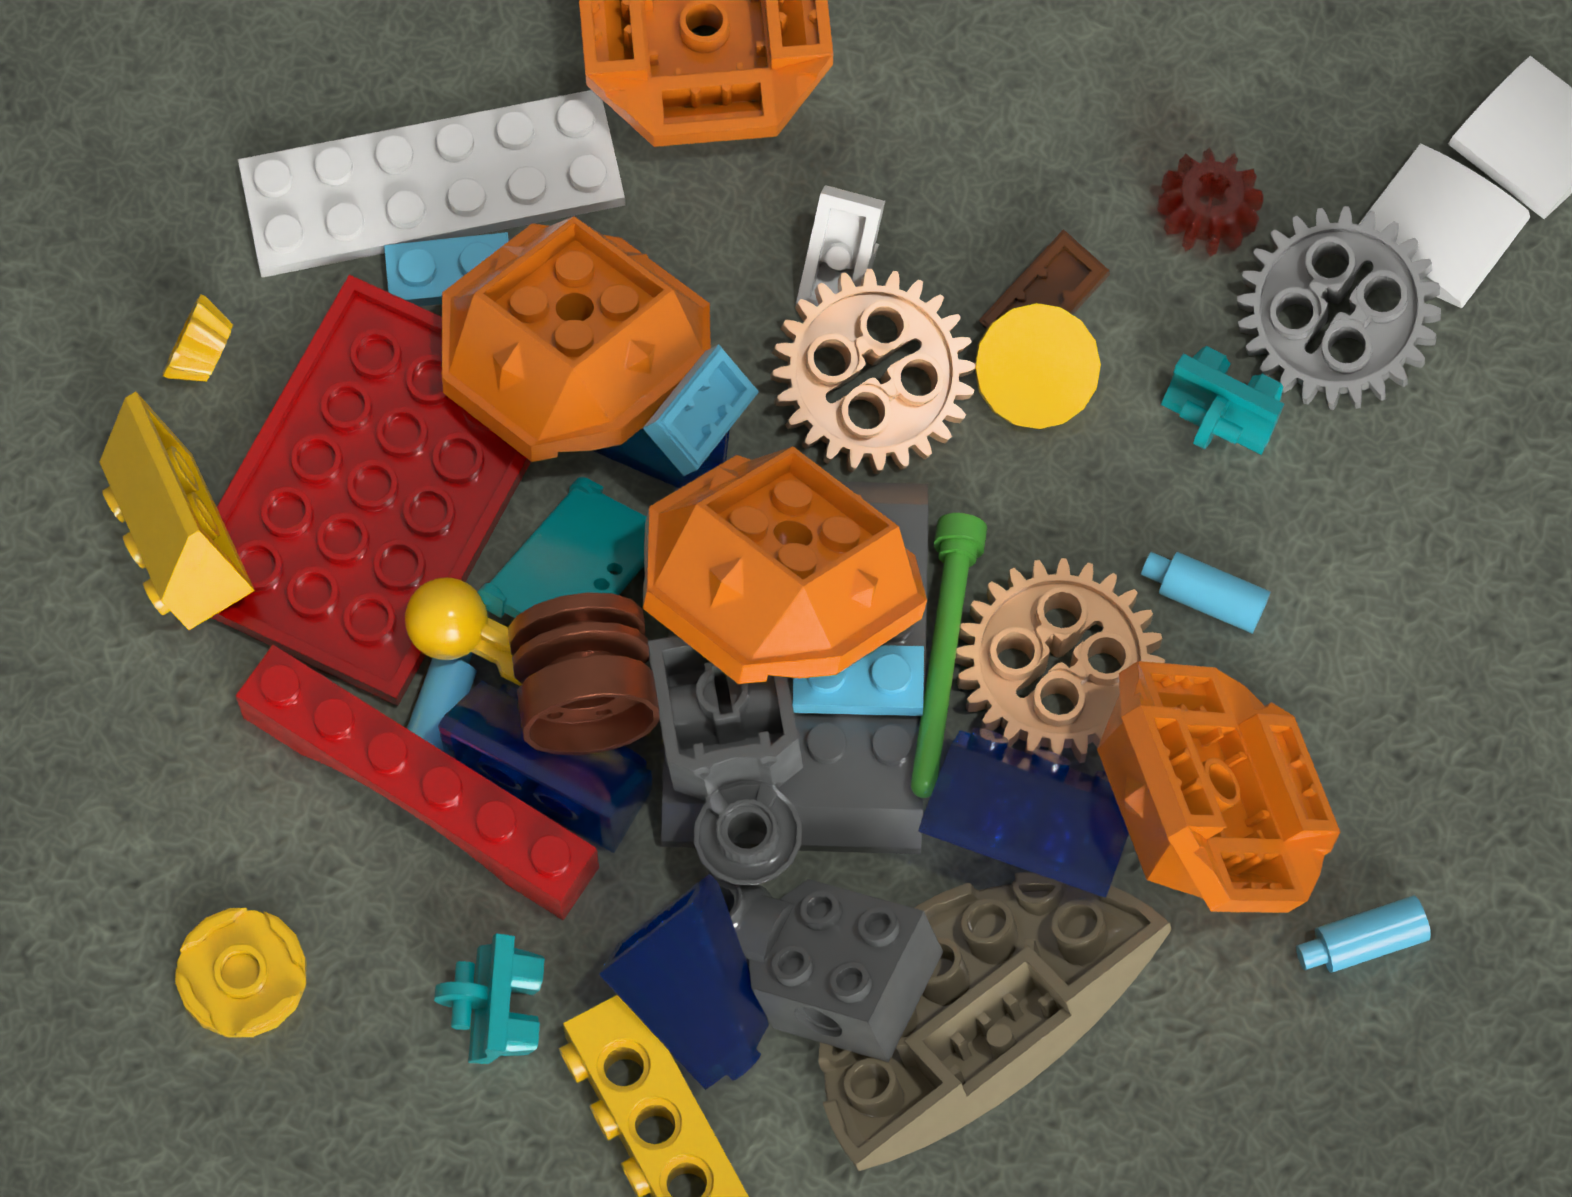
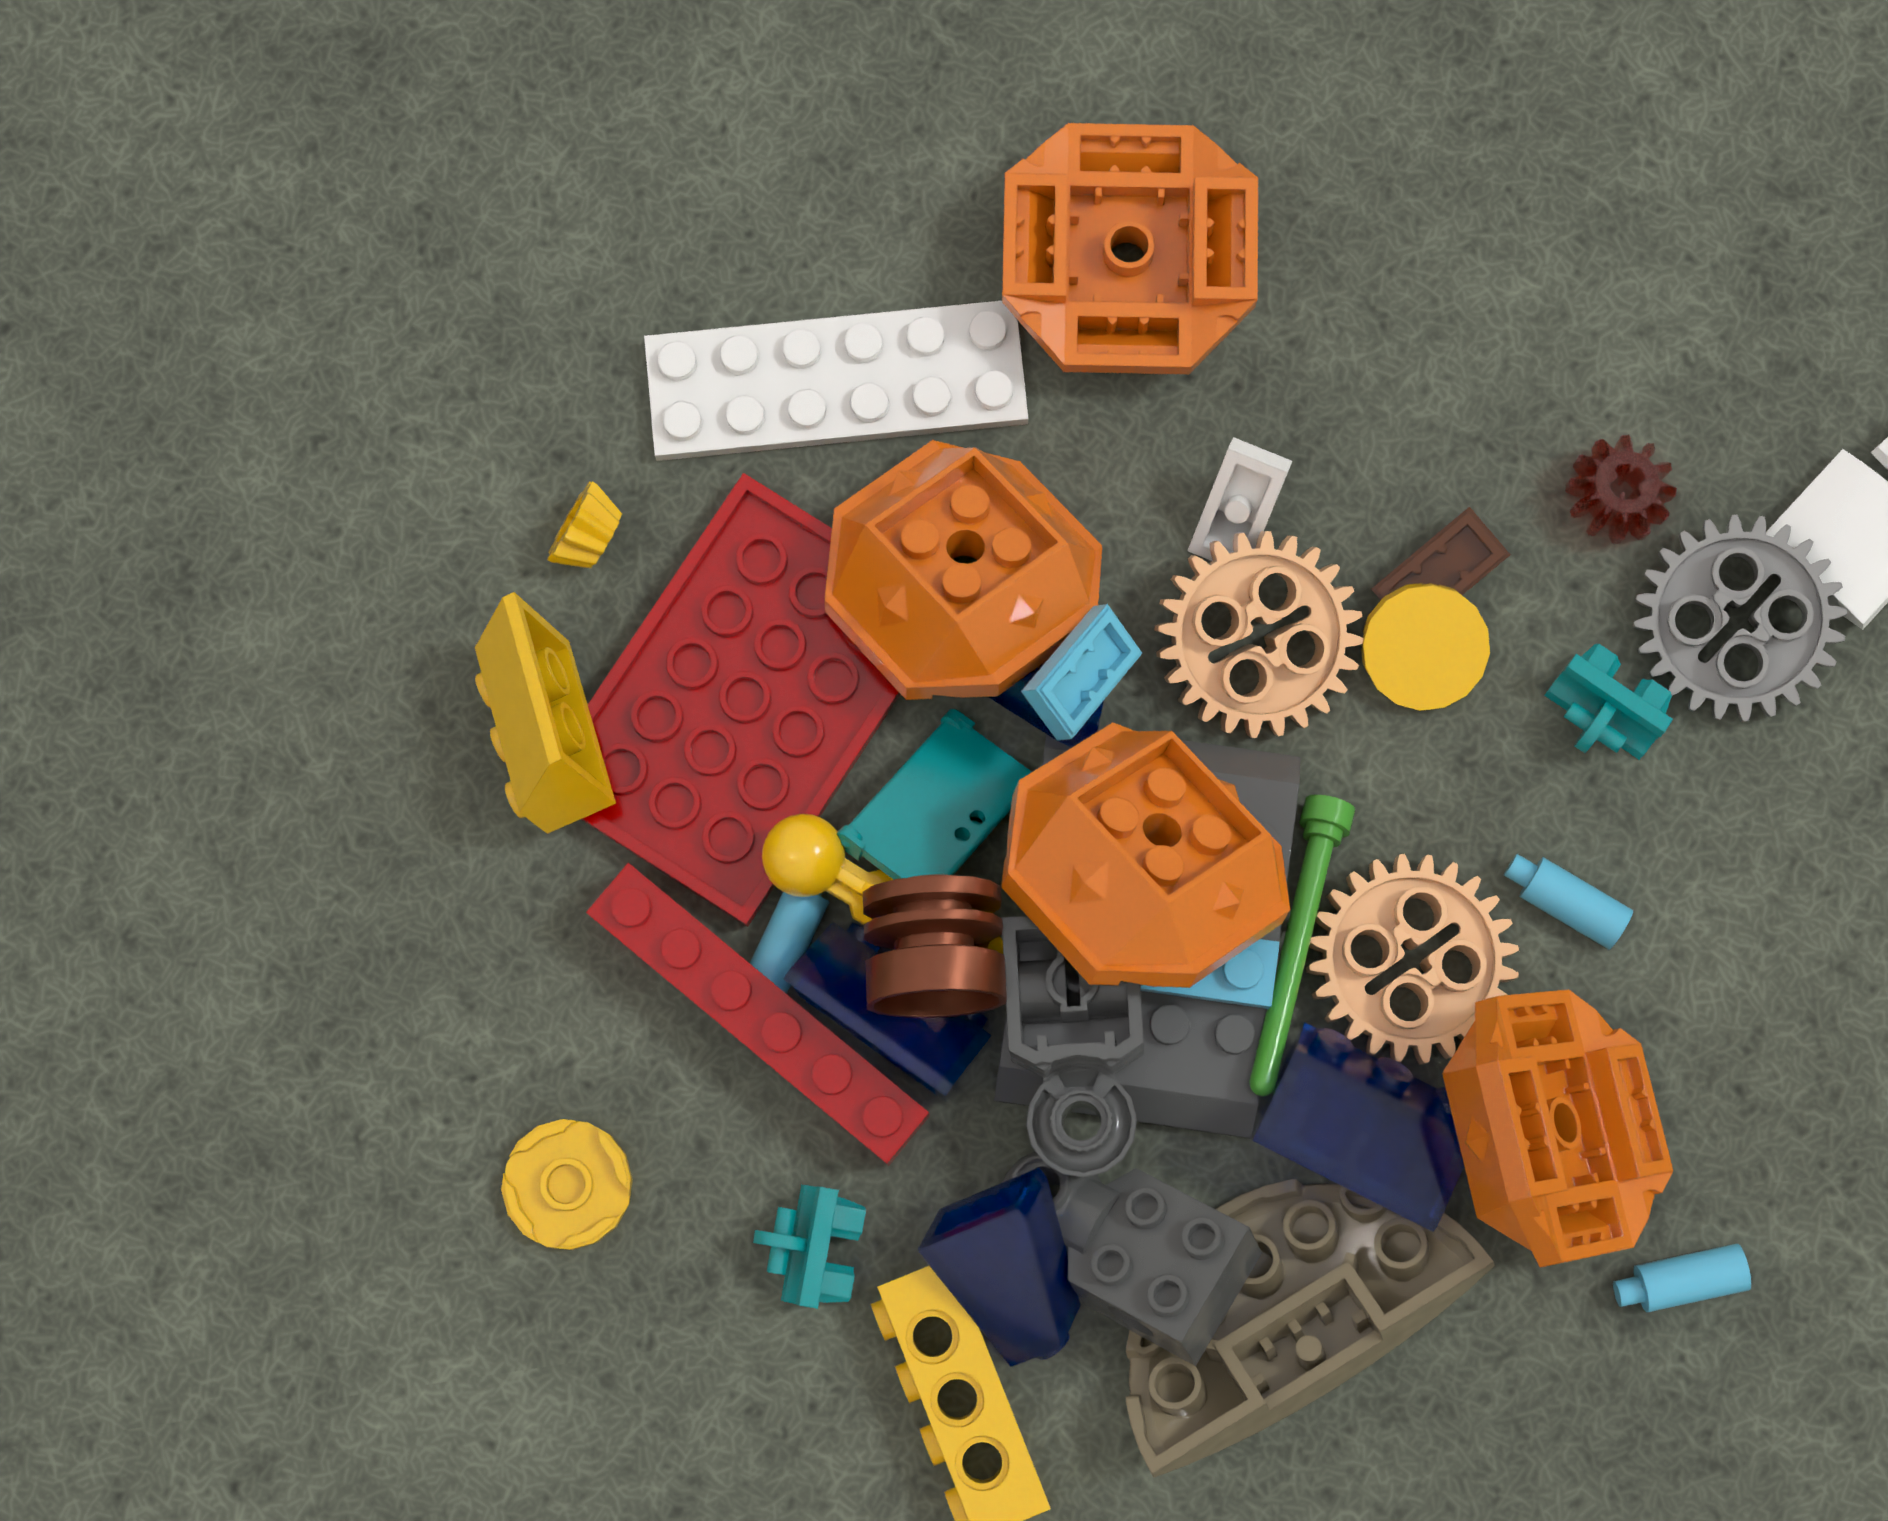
camera: 10 degrees right, 10 degrees up
(427, 268) = (833, 472): medium azure plate -> none

